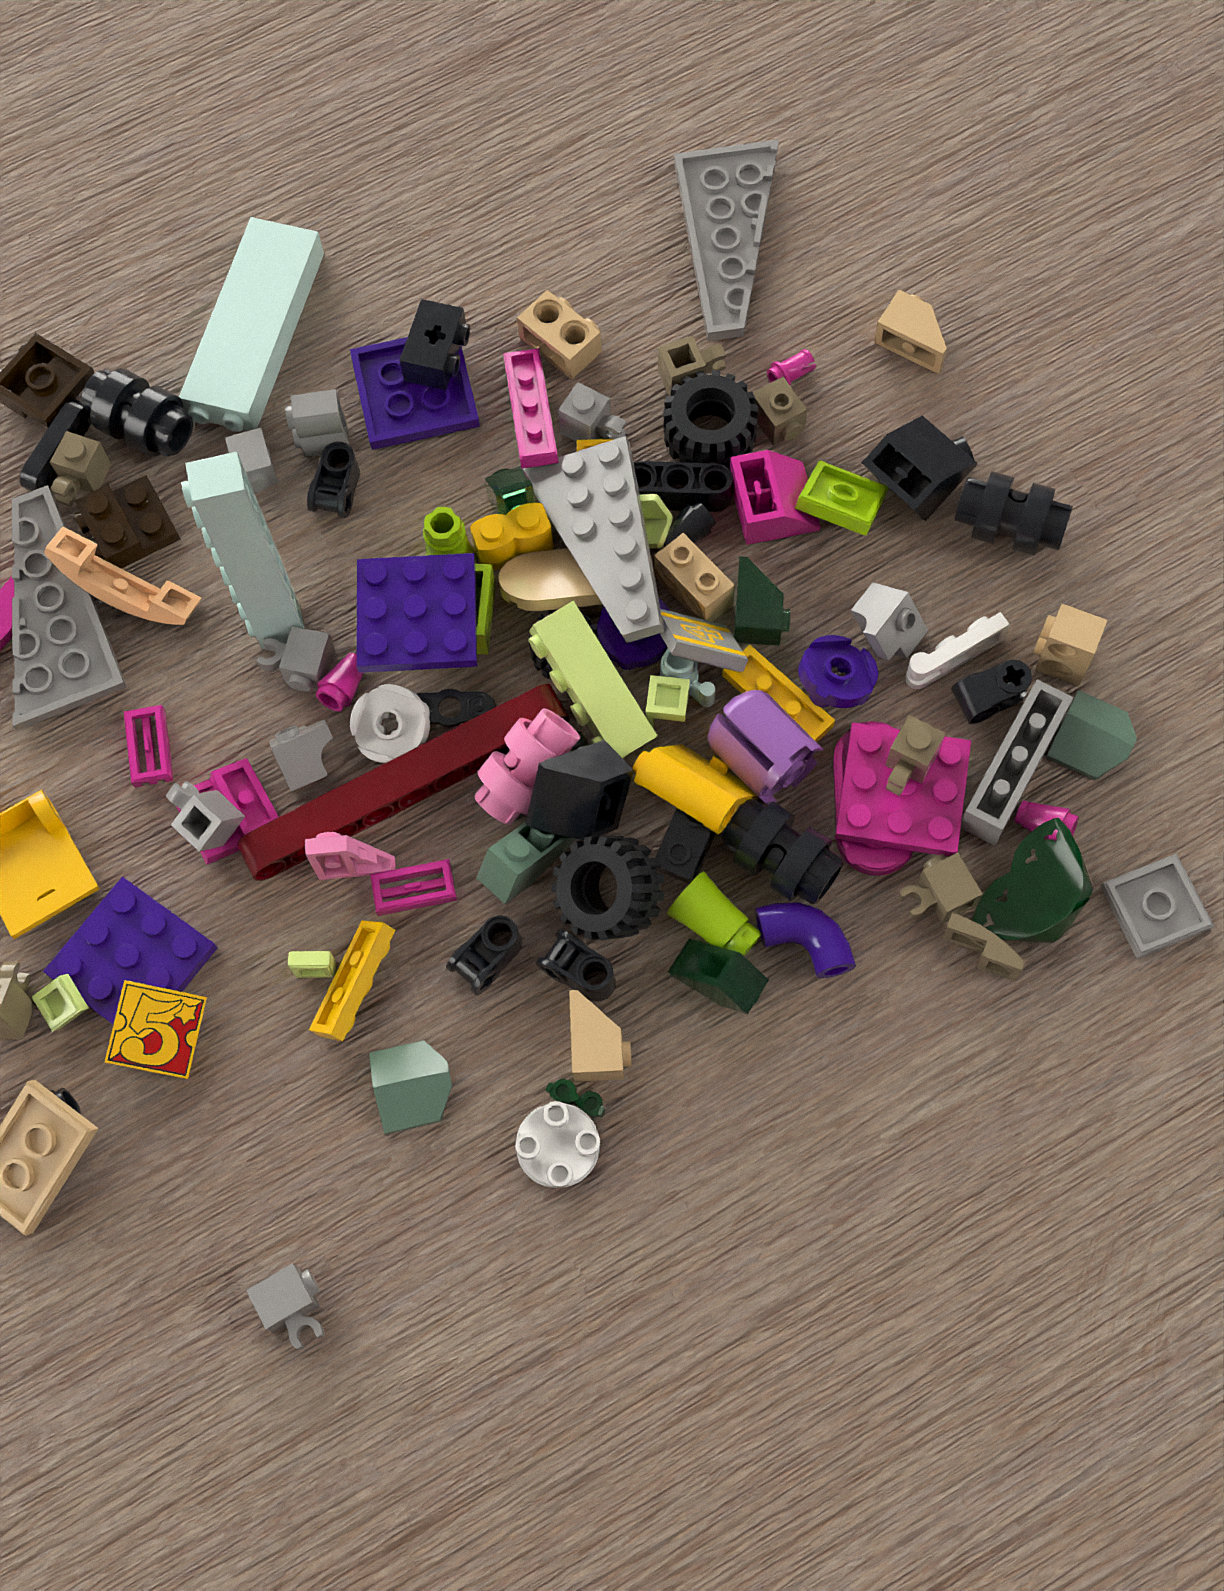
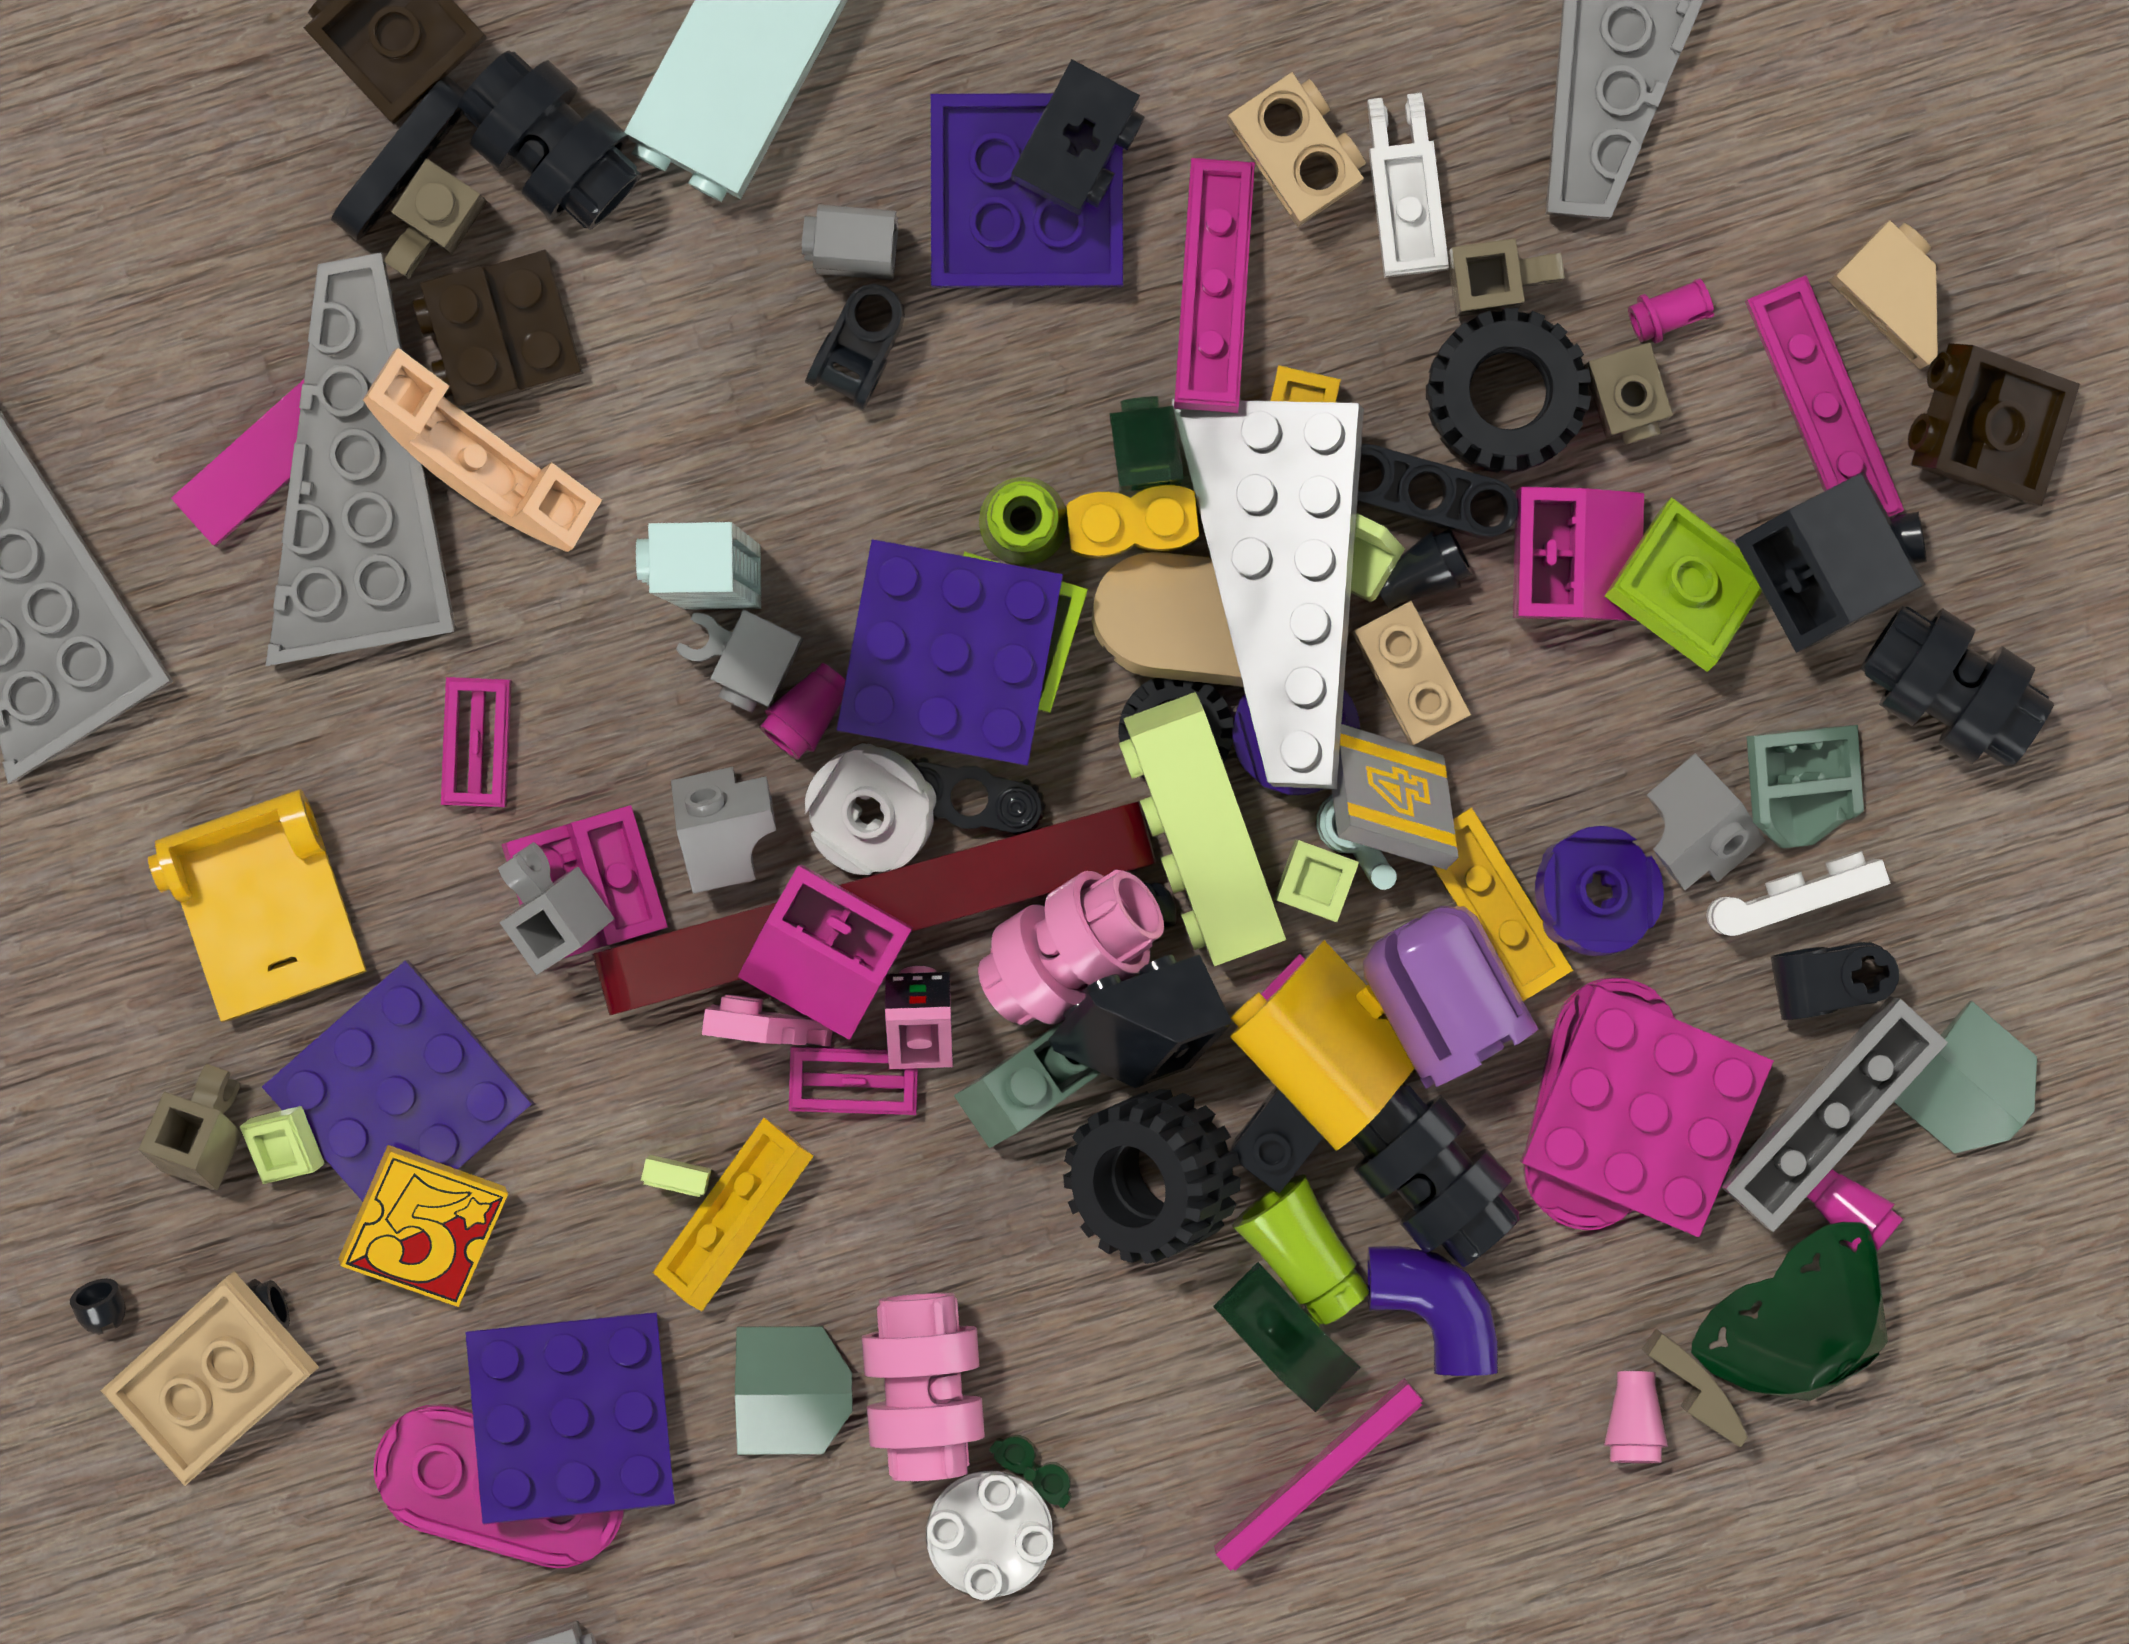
camera: 10 degrees right, 20 degrees up
(233, 1189) = (432, 1485): none -> dark pink tile
(255, 458) = (721, 268): light grey brick -> none
(270, 1131) = (570, 1418): none -> dark purple plate
(375, 794) = (824, 951): none -> dark pink slope
(444, 835) = (918, 1018): none -> bright pink slope
(484, 955) = (941, 1223): black piece -> none
(488, 1036) = (924, 1412): none -> bright pink piece
(572, 961) = (1075, 1270): black piece -> none
(588, 416) = (1306, 326): light grey brick -> none
(595, 1043) = (1079, 1399): tan slope -> none
(628, 345) = (1406, 194): none -> white hinge
(758, 607) = (1502, 743): clear green slope -> none
(759, 1056) = (1318, 1475): none -> dark pink tile
(879, 386) = (1819, 389): none -> dark pink tile
(912, 753) = (1673, 1080): dark tan brick -> none
(941, 589) = (1804, 782): none -> sand green slope
(945, 887) = (1668, 1283): dark tan brick -> none
(952, 981) = (1636, 1420): none -> bright pink cone
(988, 381) = (1992, 422): none -> dark brown plate
(1068, 643) = (1973, 941): tan brick -> none
(1157, 906) = (1980, 1379): light grey tile -> none

